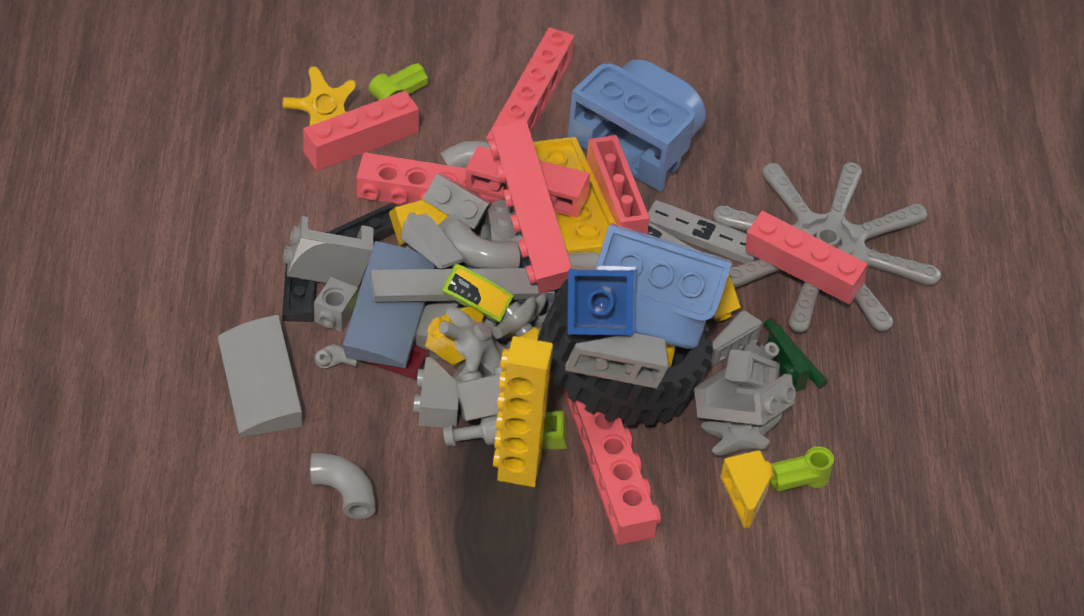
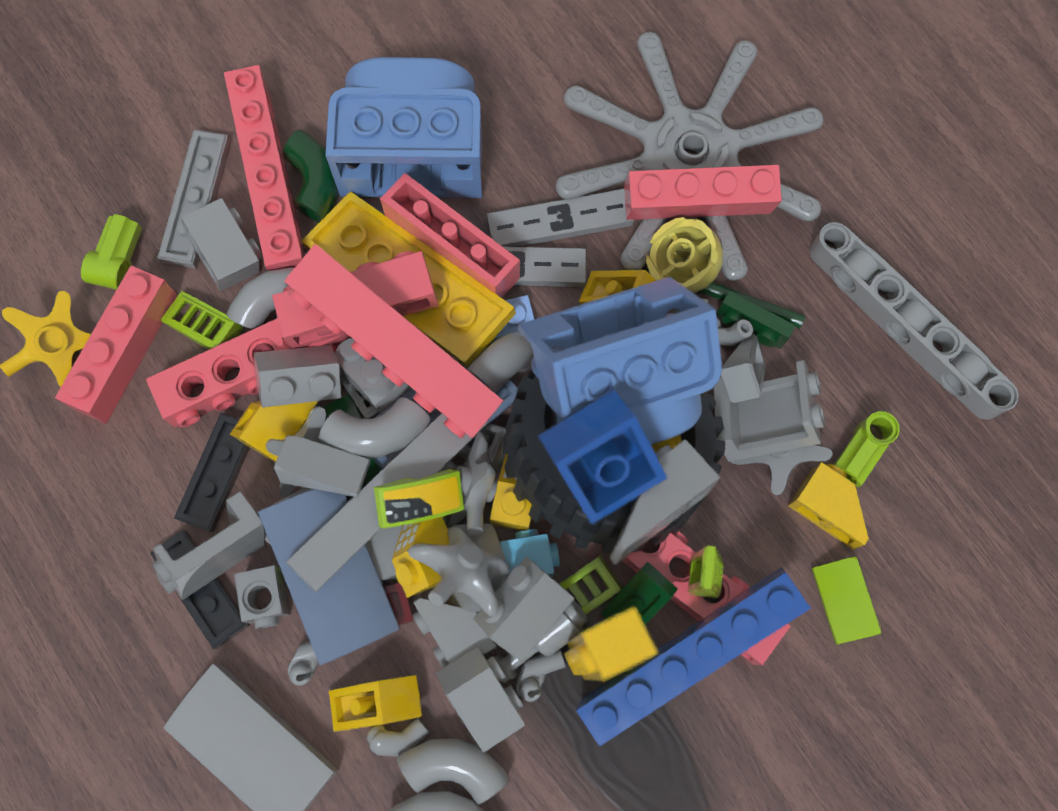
camera: 35 degrees left, 25 degrees up
(350, 431) = (395, 743): none -> light grey arm
(357, 399) = (375, 703): none -> yellow slope
(378, 458) = (455, 762): none -> light grey cylinder
(418, 138) = (227, 332): none -> lime slope
(424, 429) = (480, 699): none -> light grey brick
(469, 113) = (221, 244): none -> light grey brick
(469, 451) = (534, 672): none -> light grey arm
(473, 88) = (195, 189): none -> light grey tile
(557, 122) = (318, 186): none -> dark green cylinder
(569, 446) = (645, 592): none -> dark green plate
(577, 484) = (692, 656): none -> blue brick
(624, 441) = (706, 573): none -> lime slope
(711, 545) = (846, 600): none -> lime slope
(768, 291) = (686, 253): none -> light yellow cylinder
(900, 426) = (913, 322): none -> light grey beam

